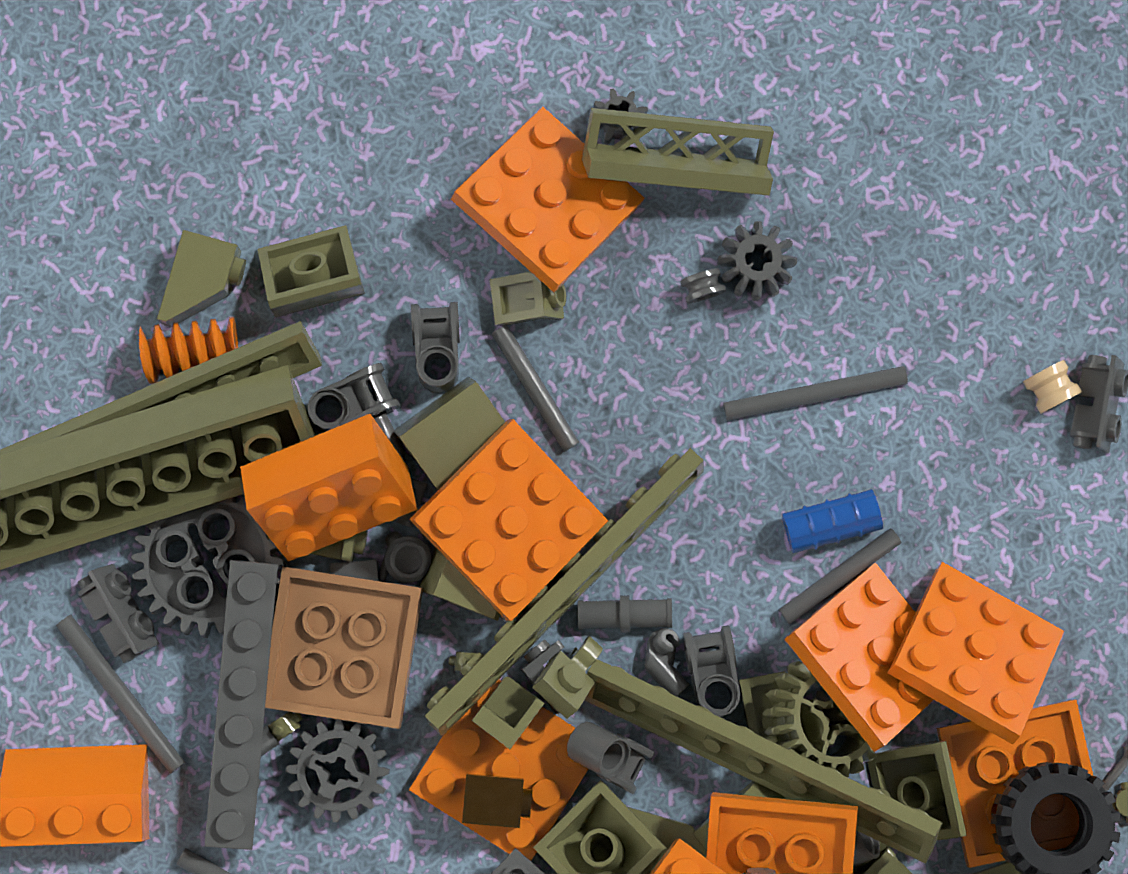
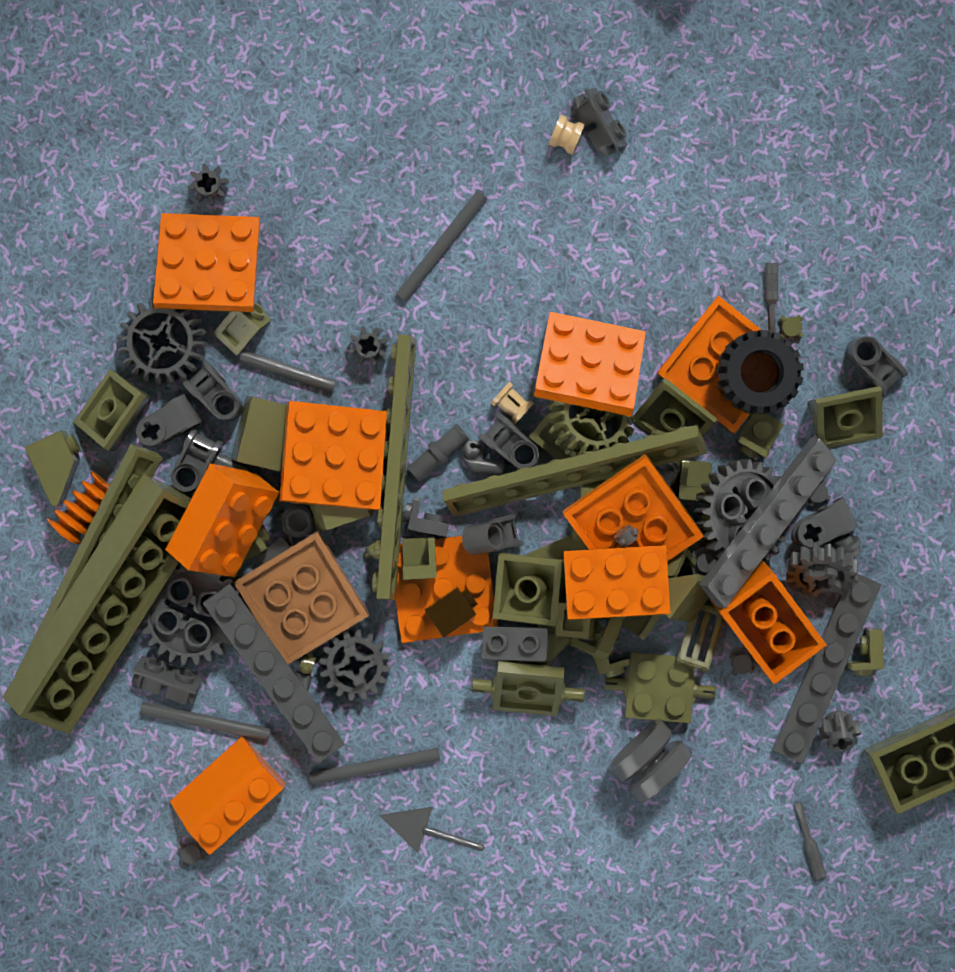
camera: 25 degrees left, 5 degrees up
(369, 335) = (174, 419): none -> dark grey piece
(408, 253) = (157, 355): none -> dark grey gear
(564, 678) = (434, 515): olive plate -> none
(641, 446) = (359, 349): none -> dark grey gear
(678, 168) = (263, 186): olive fence -> none
(703, 285) = (331, 238): dark grey bush -> none
(751, 627) = (512, 403): none -> tan bush
(770, 272) = (360, 200): dark grey gear -> none
(832, 521) = (508, 308): blue axle -> none
(840, 576) = (537, 334): dark grey bar -> none
(976, 653) = (643, 315): orange plate -> none

